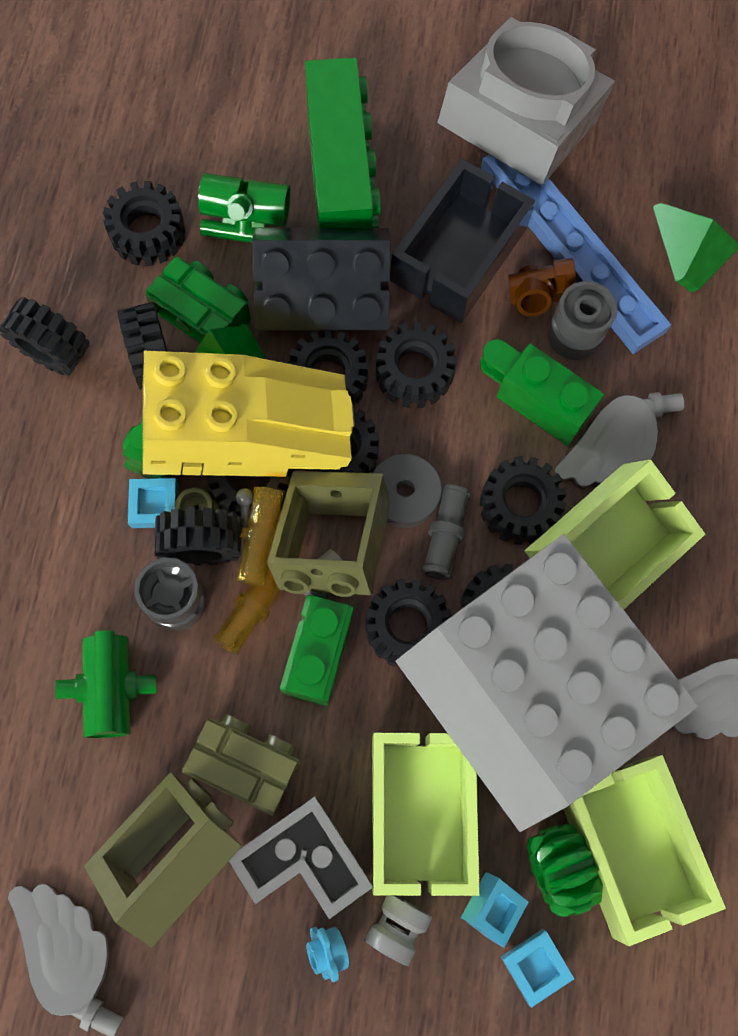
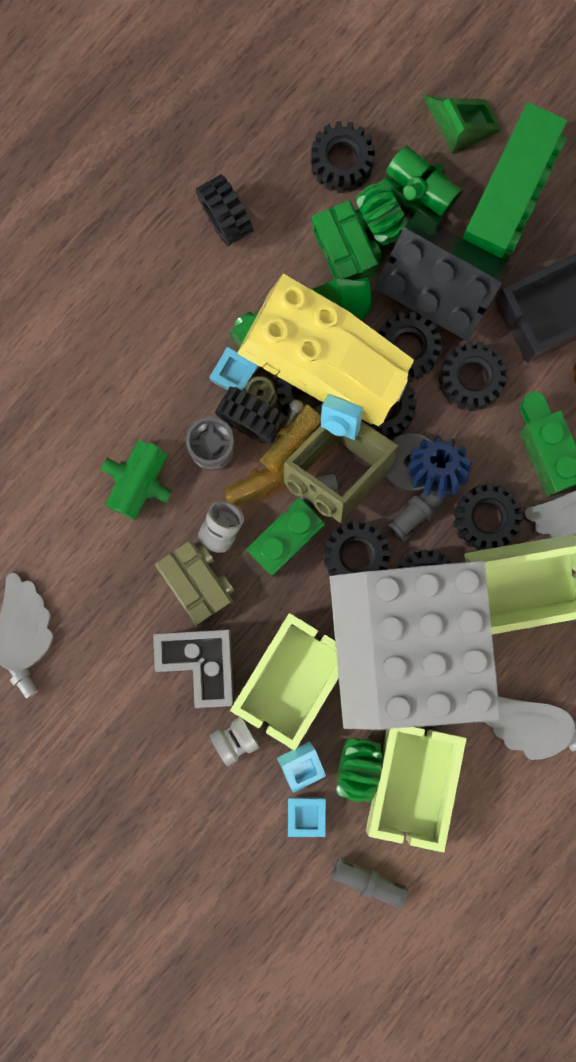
camera: 35 degrees right, 10 degrees up
(140, 333) = (291, 252): black tyre -> none
(180, 876) = (117, 627): olive window -> none
(219, 250) = (382, 212): none -> green gear
(235, 681) = (220, 526): none -> light grey wheel
(246, 128) = (462, 120): none -> green slope
(301, 476) = (341, 417): none -> medium azure plate
(327, 952) = (182, 728): medium azure plate -> none
(440, 473) = (449, 477): none -> dark blue gear
(658, 1002) = (369, 883): none -> dark grey pin

